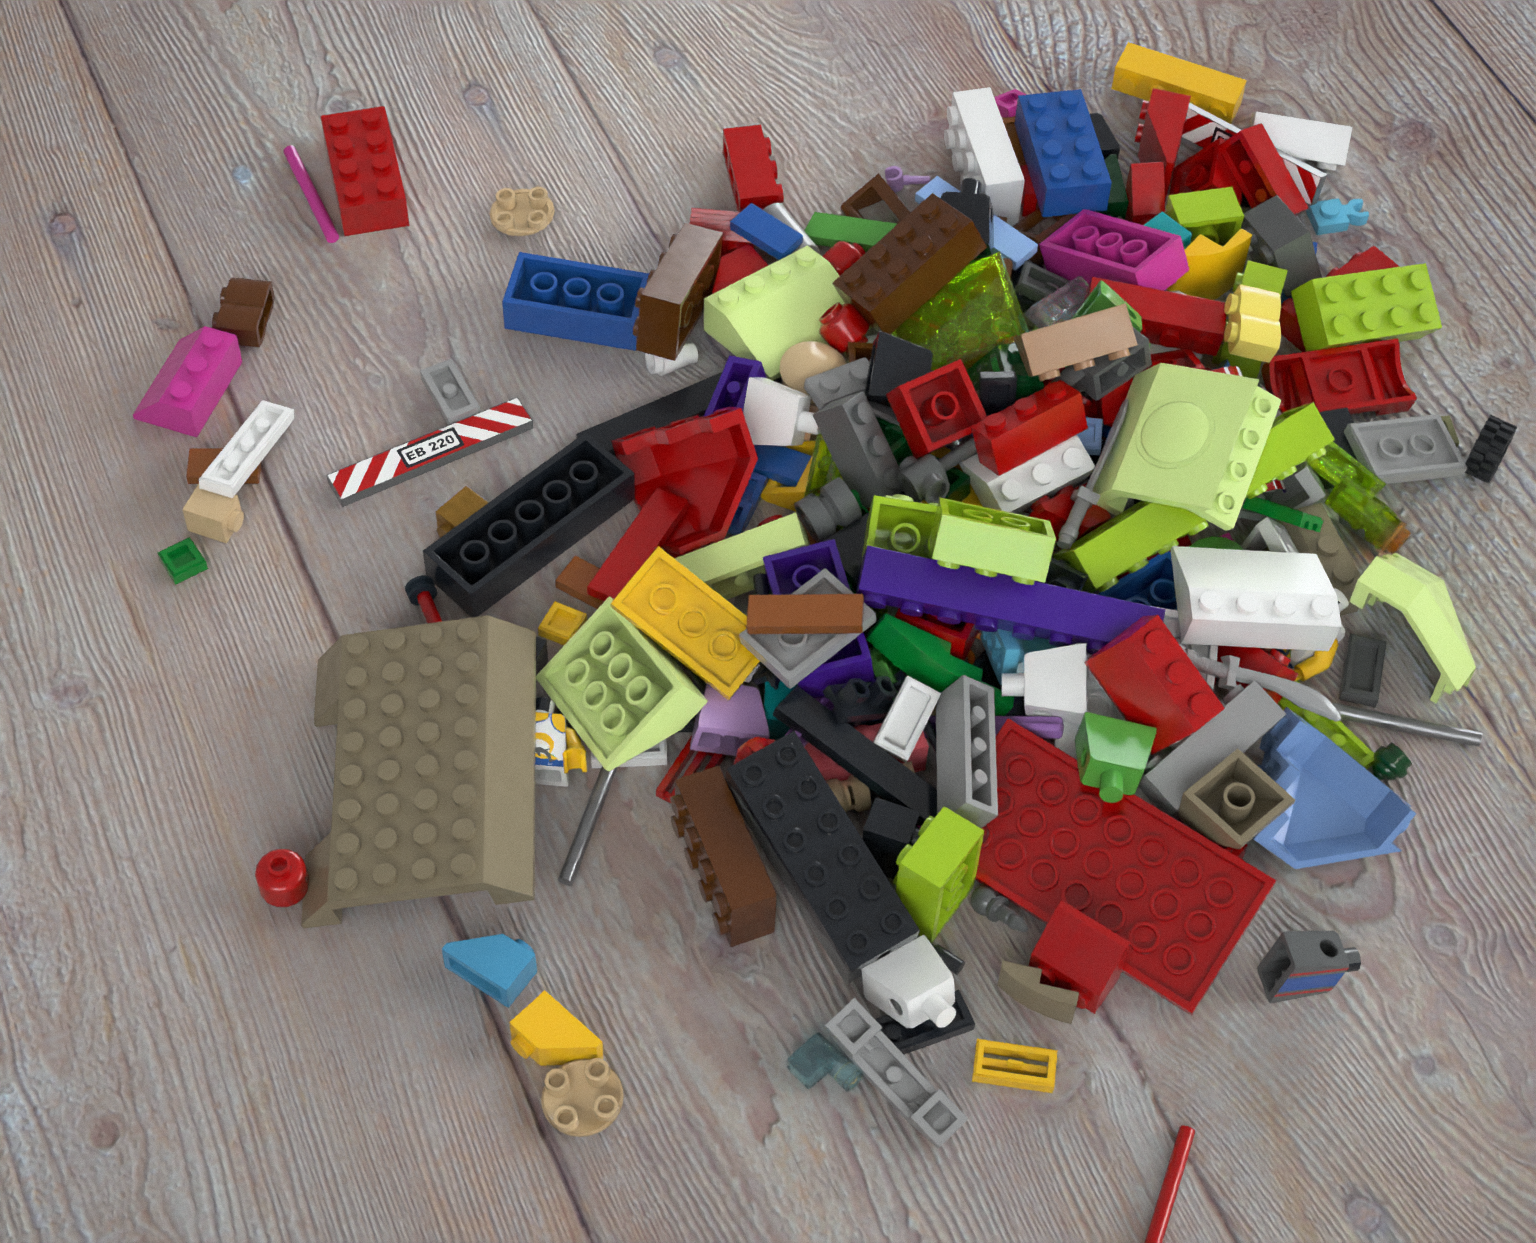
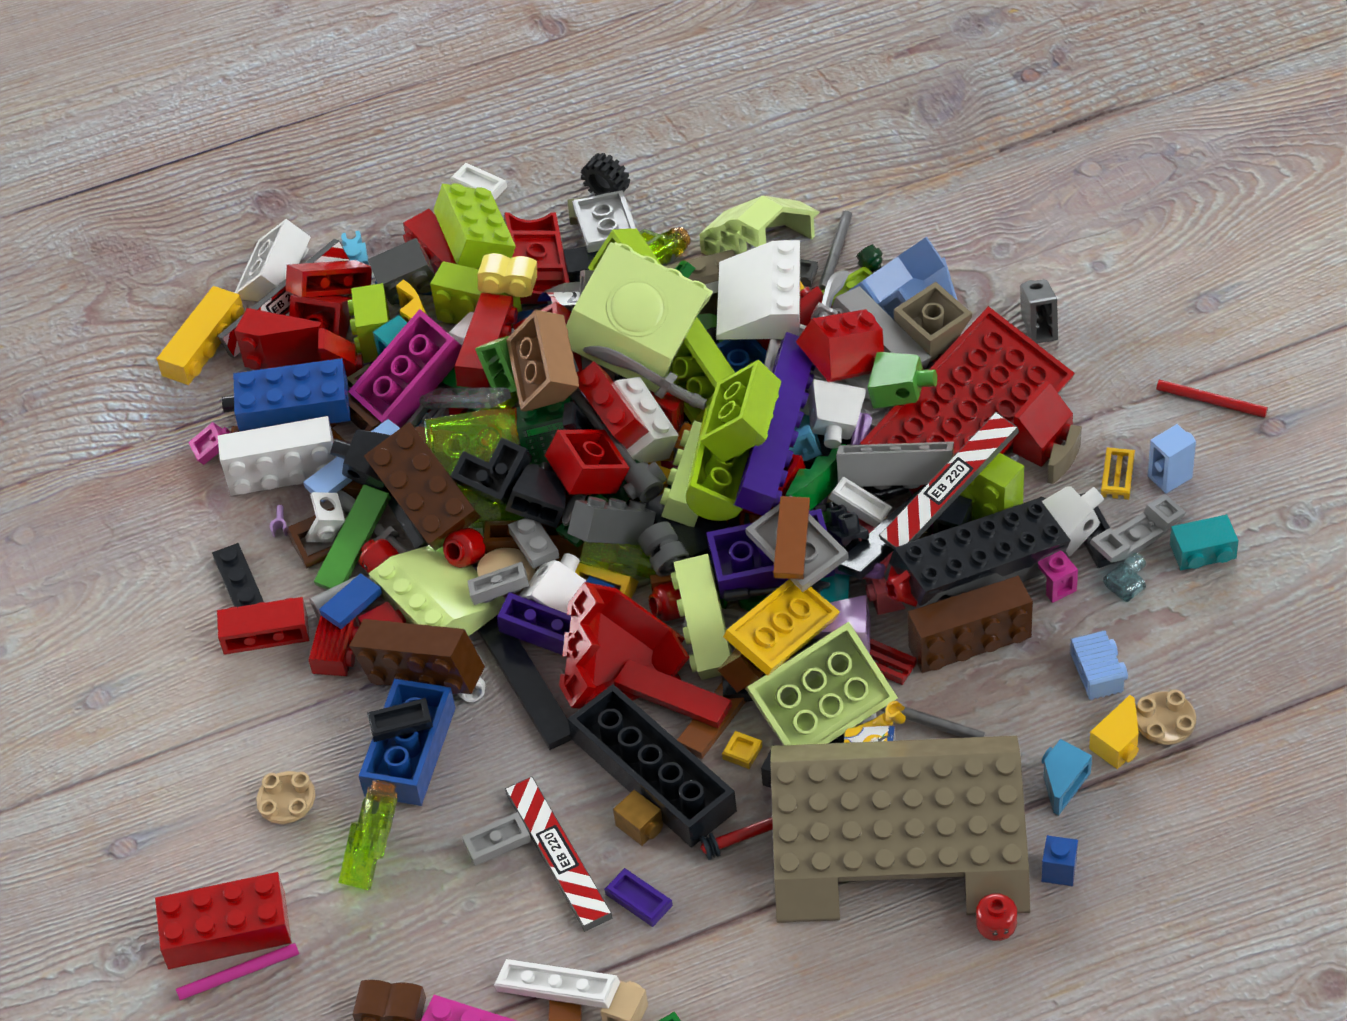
camera: 80 degrees left, 5 degrees down
(359, 952) = (1059, 860): none -> blue brick
(364, 528) = (638, 897): none -> dark purple tile
(453, 277) = (369, 835): none -> clear neon green plate
(588, 279) = (399, 720): none -> black tile
(668, 1015) = (1098, 665): none -> light blue brick
(777, 353) = (498, 583): none -> light grey plate
(812, 966) = (1060, 575): none -> dark pink bracket
(820, 152) = (237, 576): none -> black plate
(879, 1165) = (1204, 542): none -> teal brick
(883, 205) = (327, 522): none -> white bracket
(909, 798) = (950, 482): none -> tile
(922, 317) = (496, 478): none -> black brick
(1020, 1122) = (1171, 458): none -> light blue brick
(1476, 330) = (474, 177): none -> white tile

